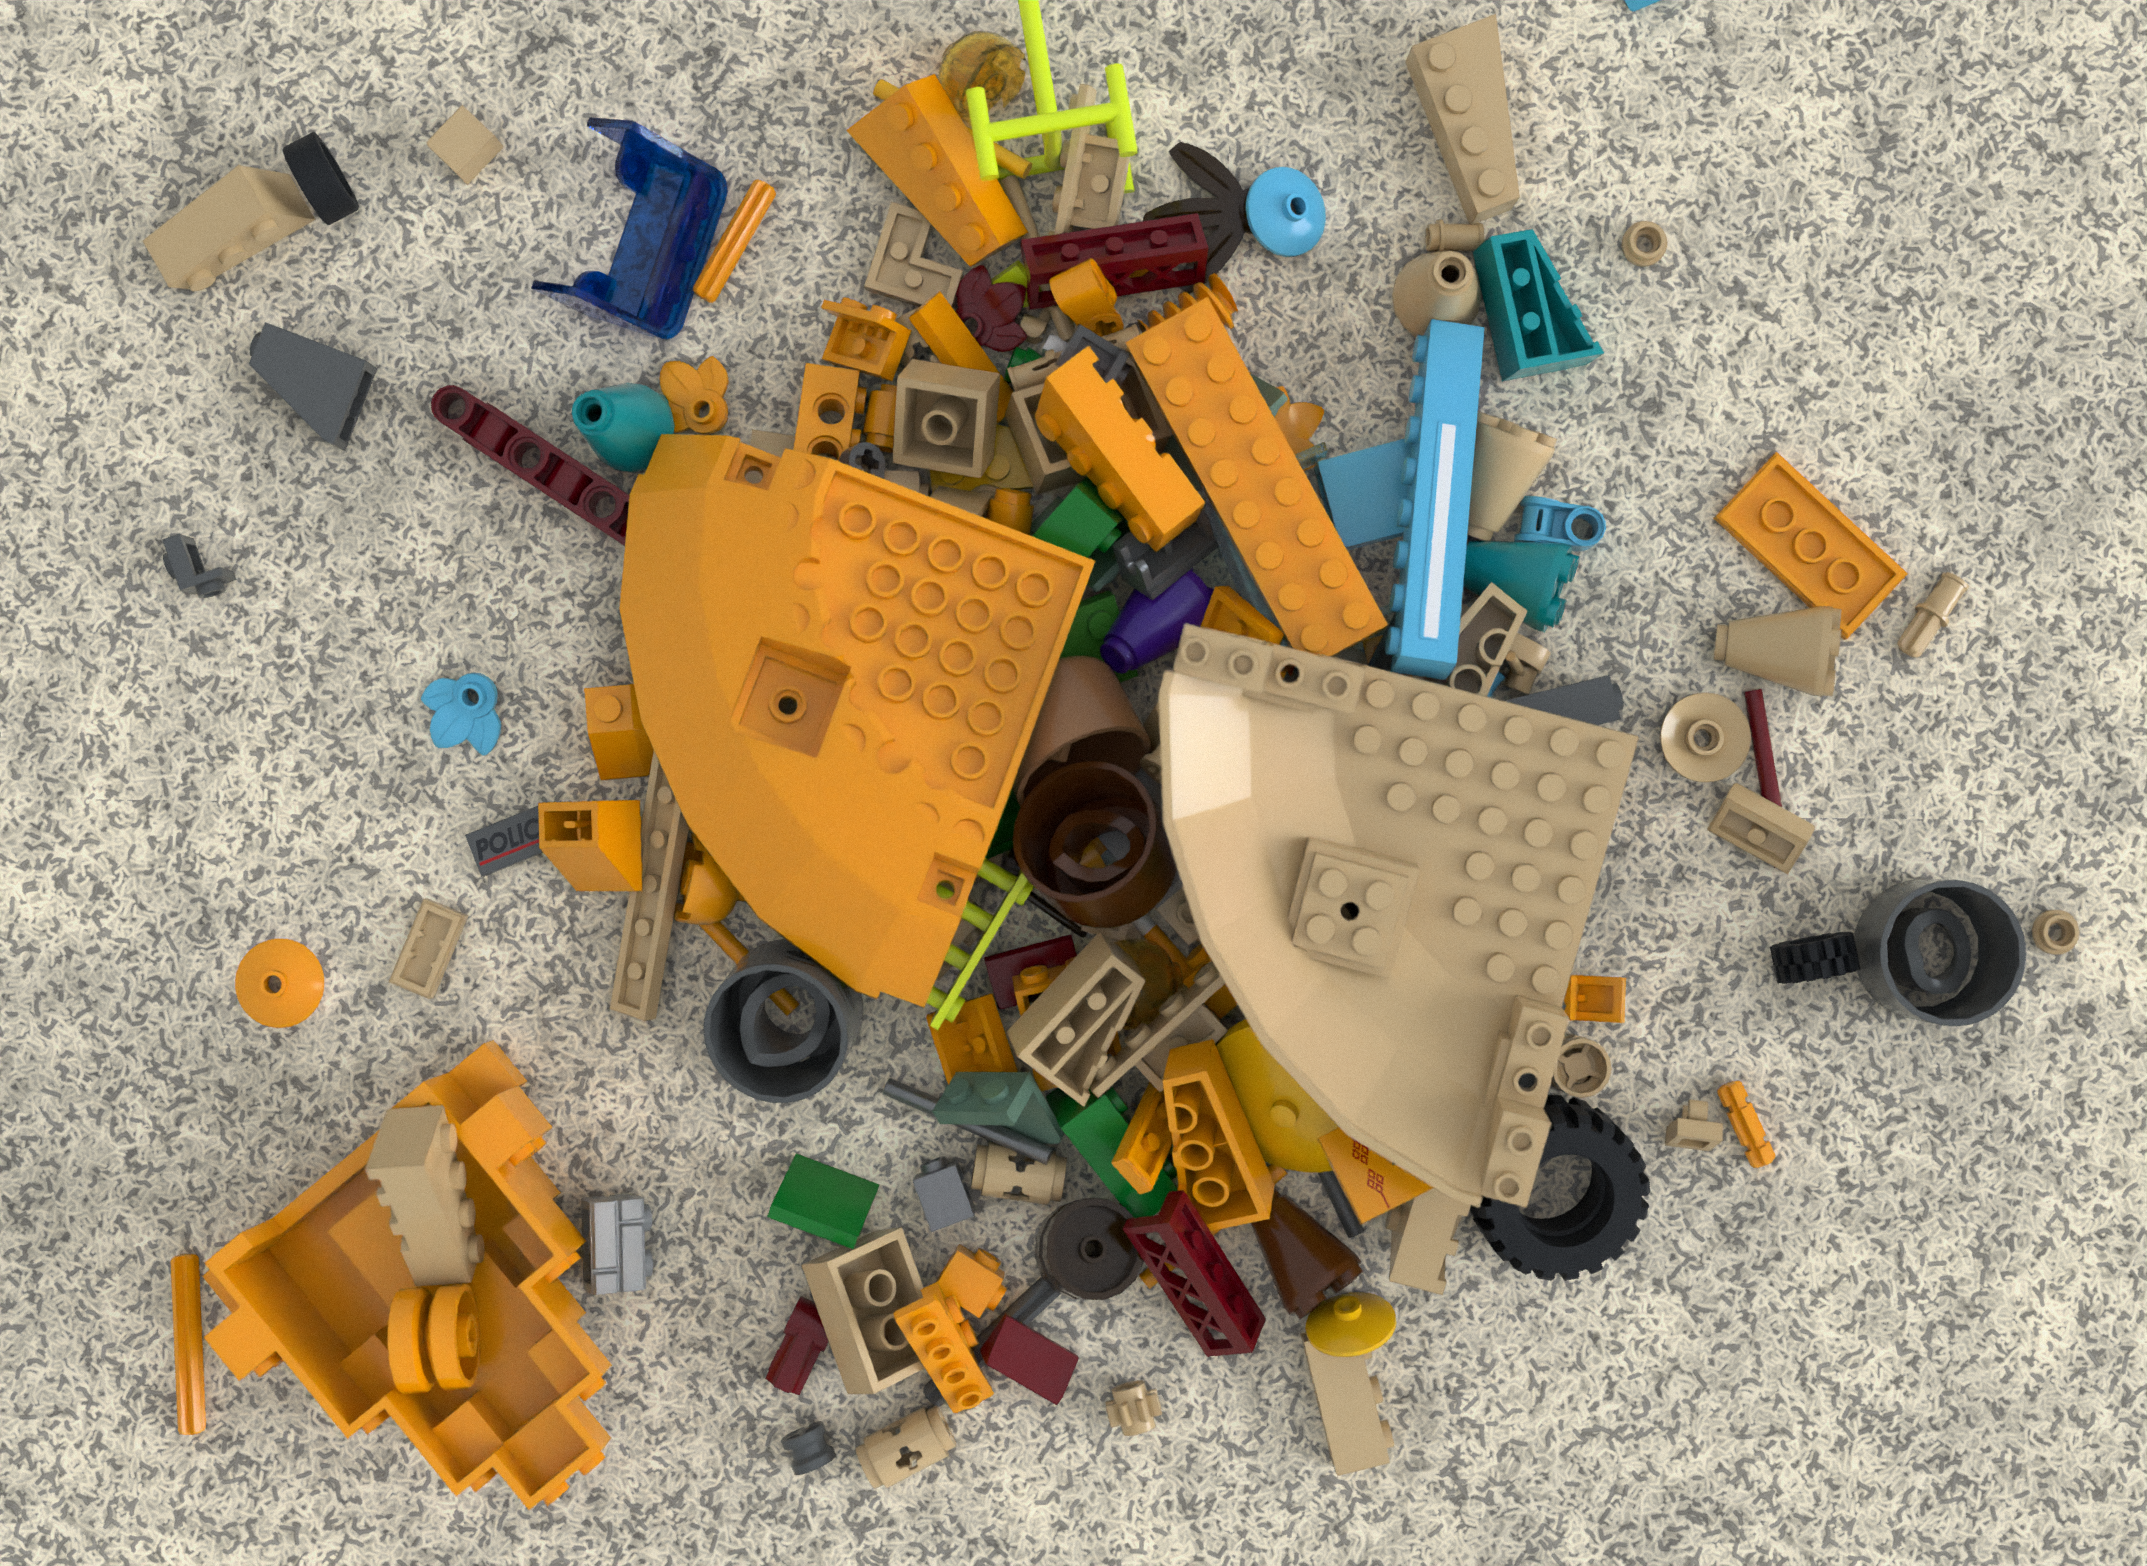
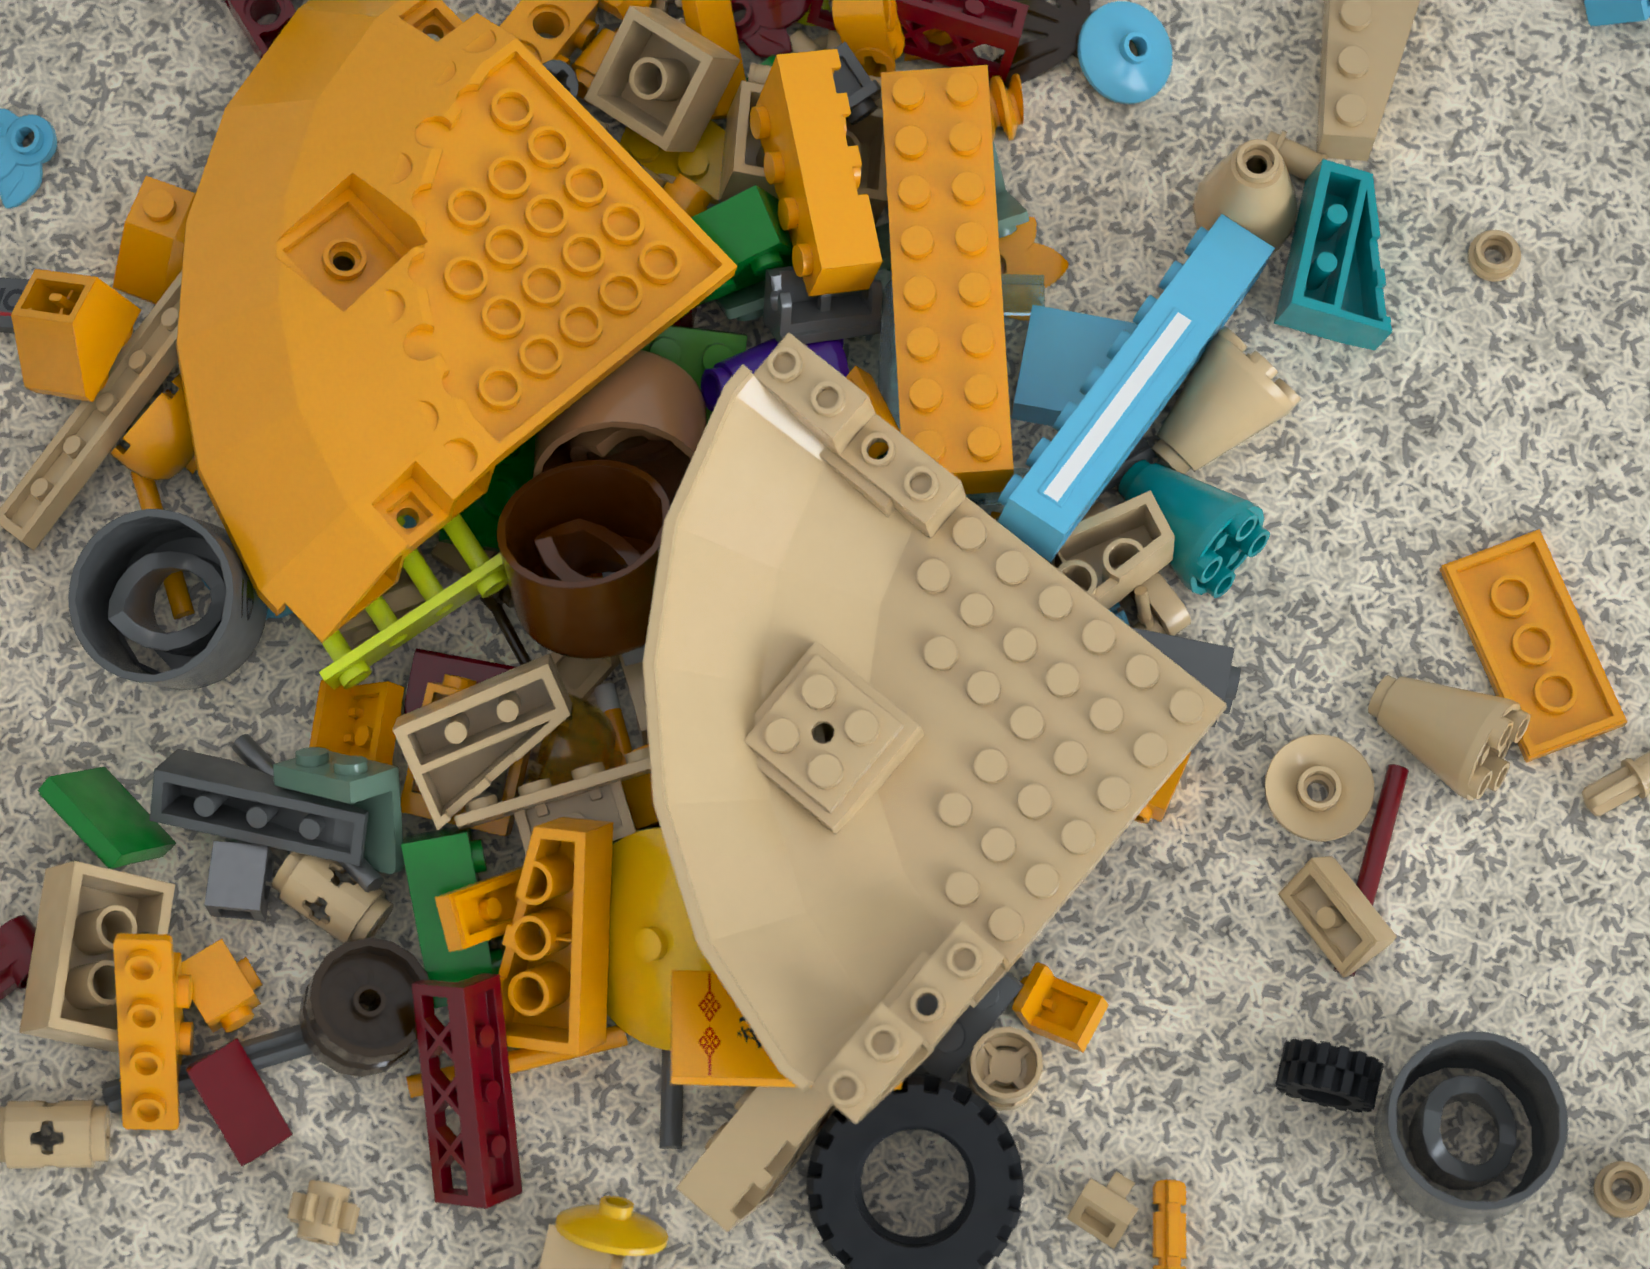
camera: 20 degrees right, 15 degrees down
(914, 1143) = (245, 805): none -> dark grey slope
(1303, 1256) = (596, 1134): reddish brown cone -> none
(1556, 521) = (1265, 484): medium azure piece -> none

